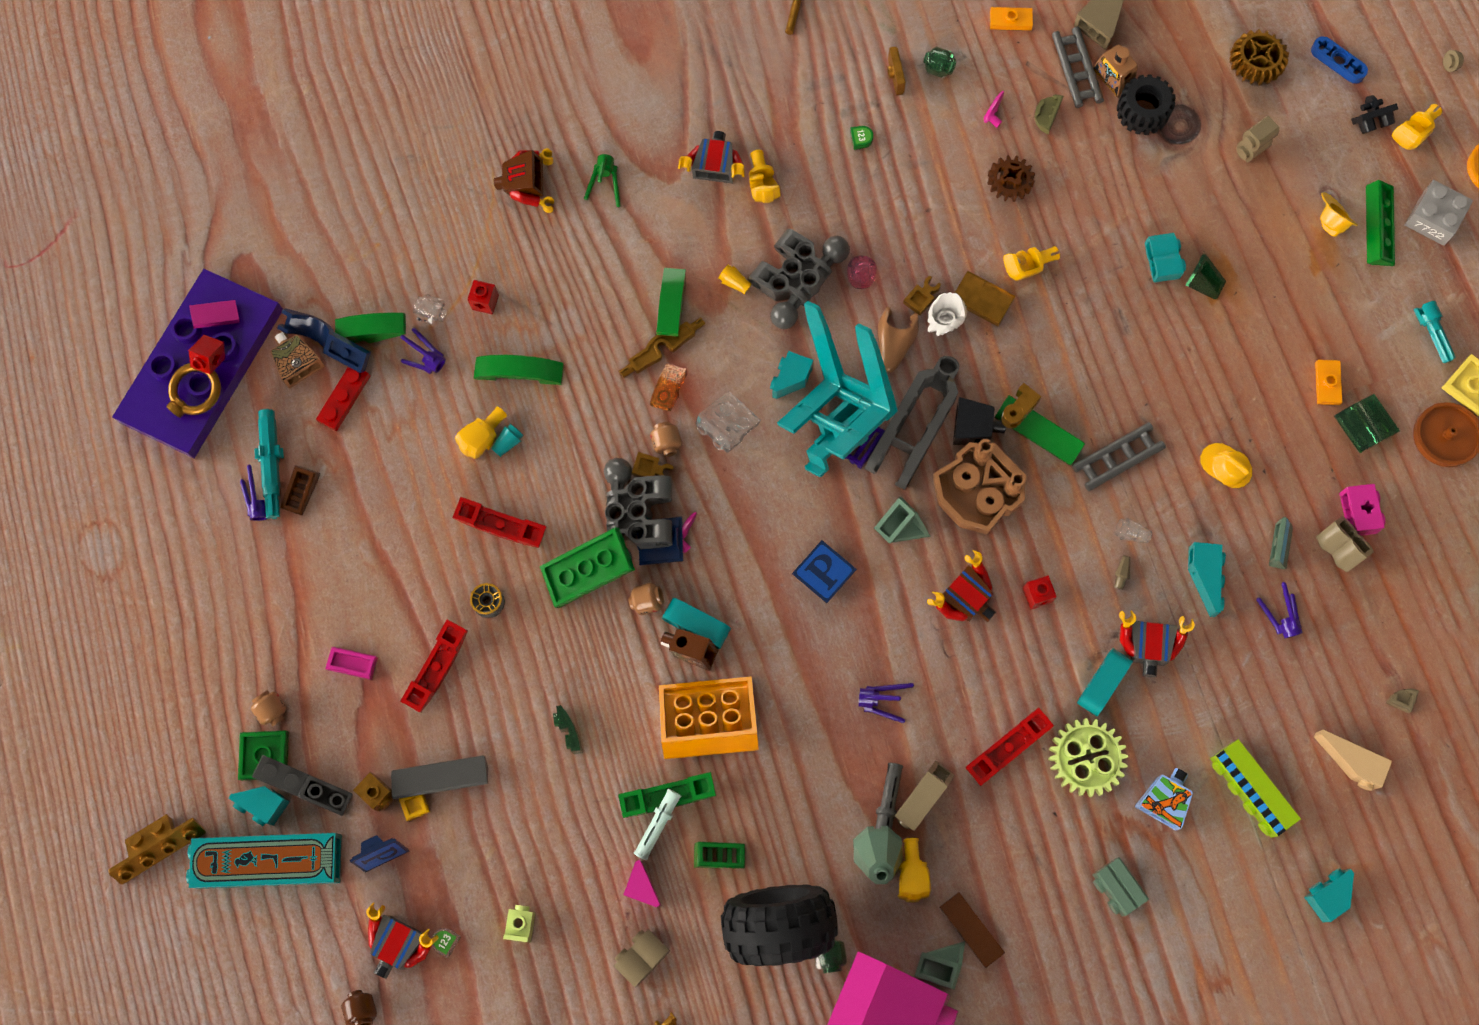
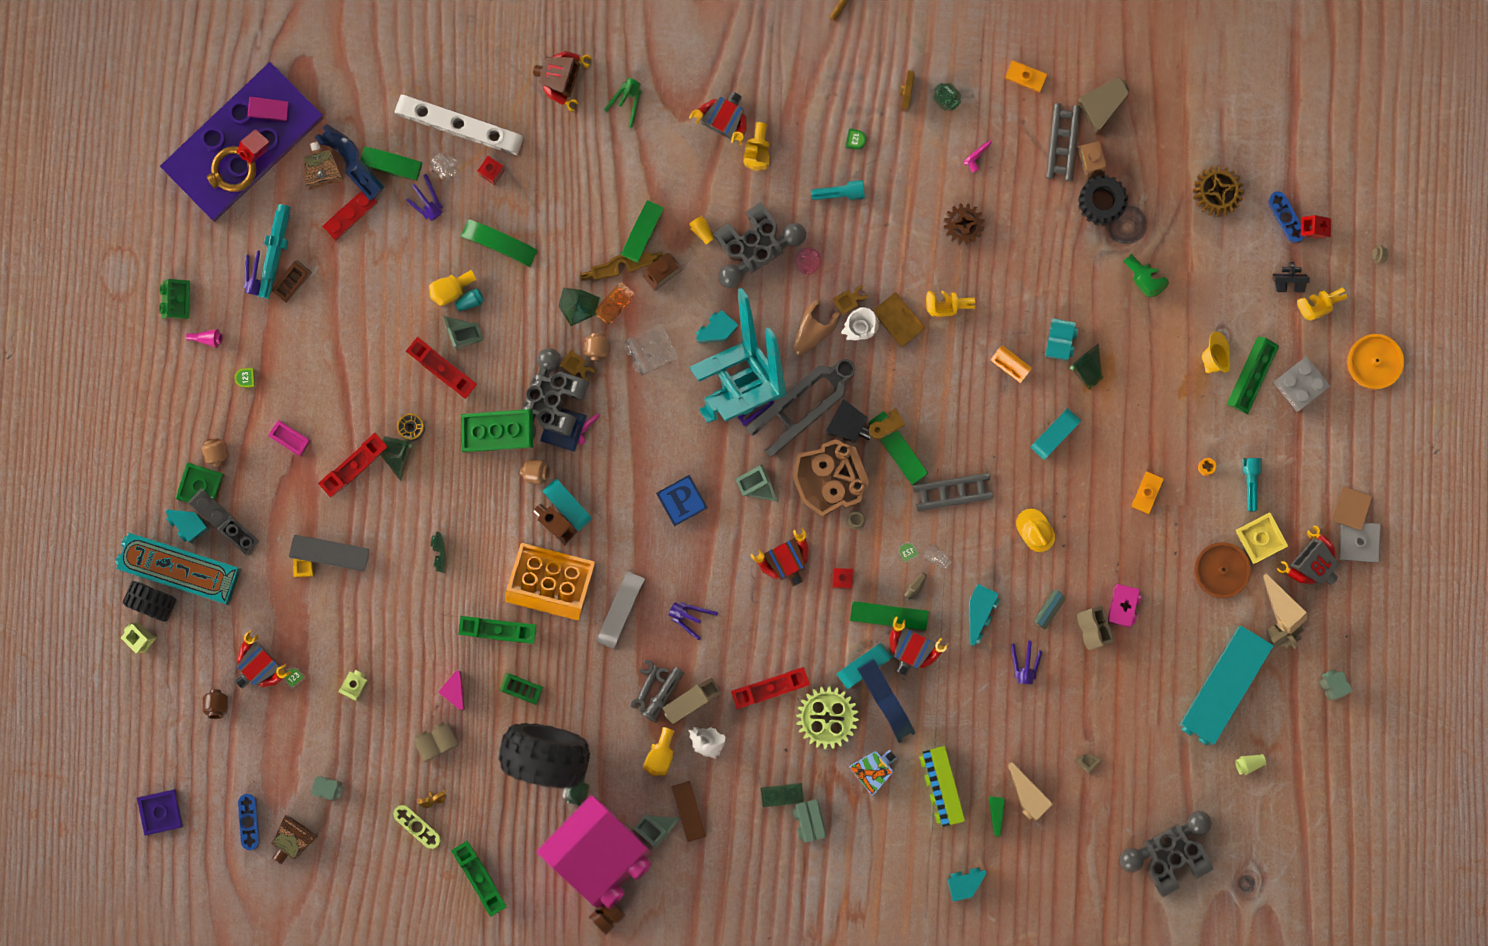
camera: 15 degrees right, 10 degrees up
(153, 845) = (97, 525): pearl gold bracket -> none
(172, 554) = (175, 299): none -> green bracket
(225, 583) = (211, 337): none -> dark pink cone
(239, 912) = (149, 601): none -> black tyre
(240, 962) = (131, 638): none -> yellowish green brick
(279, 613) = (245, 378): none -> tile
(374, 792) = (276, 547): pearl gold brick -> none
(376, 853) = (265, 593): dark blue piece -> none
(415, 263) = (472, 130): none -> white beam
(481, 636) = (396, 454): none -> clear green slope
(512, 479) = (462, 332): none -> sand green slope
(628, 402) = (577, 305): none -> clear green slope
(657, 824) = (489, 642): light aqua pin -> none
(710, 332) = (662, 271): none -> reddish brown torso
(801, 721) = (620, 610): none -> light grey slope
(866, 778) = (654, 672): none -> dark grey bar
(878, 853) = (639, 731): sand green cone -> none
(879, 186) = (853, 190): none -> teal piece
(962, 836) = (707, 741): none -> white hair
(1026, 524) = (856, 520): none -> dark tan plate
(1047, 111) = (1019, 174): olive plate -> none
(1074, 868) = (782, 794): none -> clear green slope
(1098, 538) = (908, 551): none -> clear tile
(1106, 615) = (885, 615): none -> green slope
(1123, 300) = (1011, 364): none -> light orange plate
(1148, 710) = (886, 699): none -> dark blue piece
(1203, 355) = (1055, 434): none -> teal beam
(1225, 165) = (1142, 277): none -> green piece
(1257, 139) = (1179, 267): dark tan brick -> none
(1330, 796) = (996, 809): none -> green slope
(1366, 423) = (1161, 537): clear green slope -> none
(1376, 55) = (1320, 227): none -> red brick
(1379, 339) = (1204, 471): none -> light orange bush

